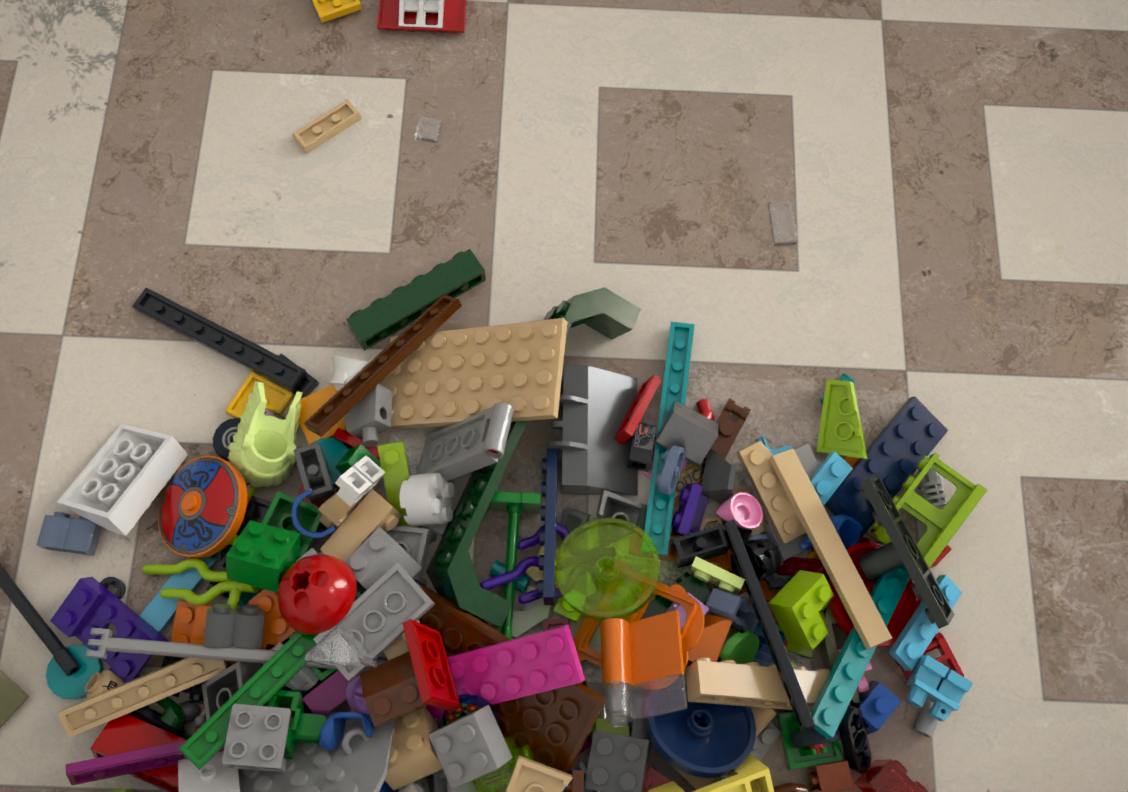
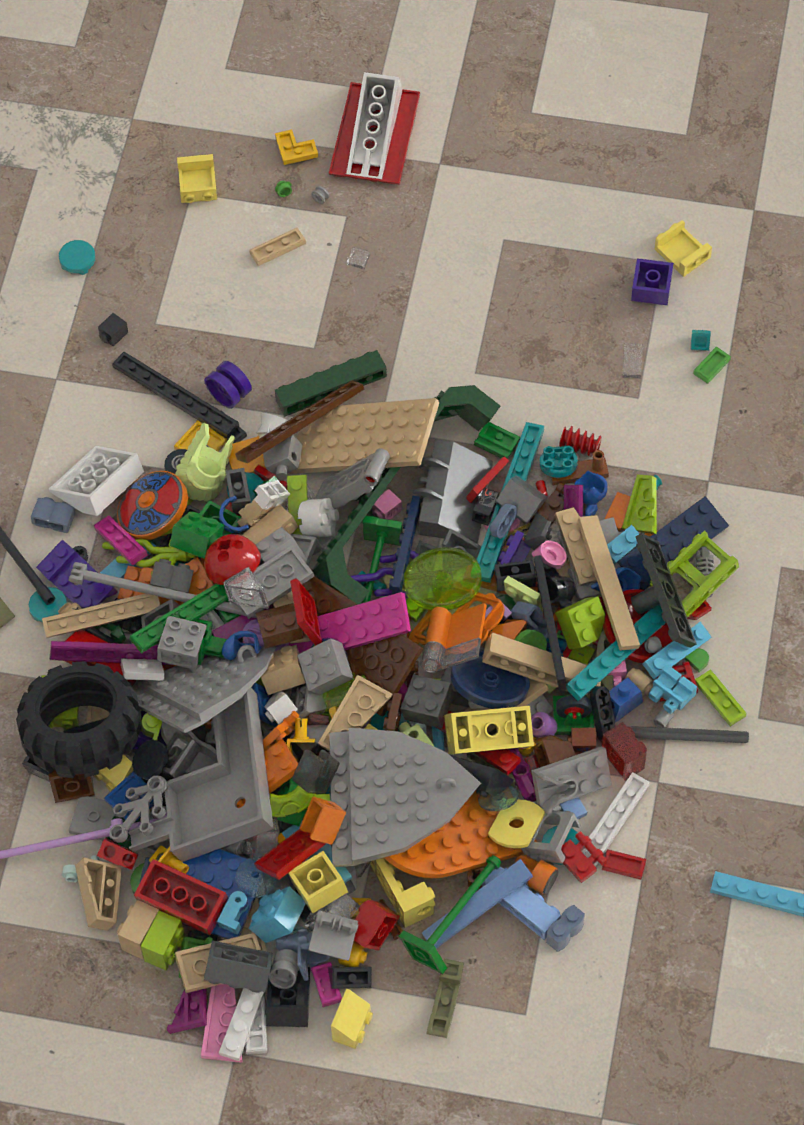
camera: 15 degrees right, 10 degrees down
(74, 167) = (77, 257): none -> teal tile
(128, 260) = (112, 329): none -> black brick
(164, 565) = (120, 540): none -> dark pink tile
(216, 50) = (197, 178): none -> light yellow panel
(284, 319) = (228, 384): none -> dark purple wheel
(324, 52) = (283, 188): none -> bright green plate
(370, 55) = (320, 194): none -> light grey bush
(517, 465) = (387, 506): none -> bright pink brick
(639, 352) = (497, 440): none -> green plate
(721, 371) = (558, 461): none -> teal tile
(744, 339) = (579, 441): none -> red piece
(747, 378) = (596, 465): none -> dark orange piece
(752, 424) = (574, 498): none -> magenta tile
(770, 406) = (594, 490): none -> blue hair
(779, 764) = (543, 724): none -> medium lavender head
(789, 120) = (652, 281): none -> dark purple brick
(807, 426) = (618, 509): none -> orange tile
(812, 76) = (682, 248): none -> light yellow panel
(860, 187) = (700, 340): none -> teal tile
(878, 217) = (712, 365): none -> bright green tile
(887, 674) = (641, 680): none -> tan brick
(900, 622) = (652, 645): none -> light grey hinge
(955, 629) = (698, 659): none -> bright green tile
(964, 742) = (691, 734): none -> dark grey axle
(994, 682) = (720, 698): none -> lime plate

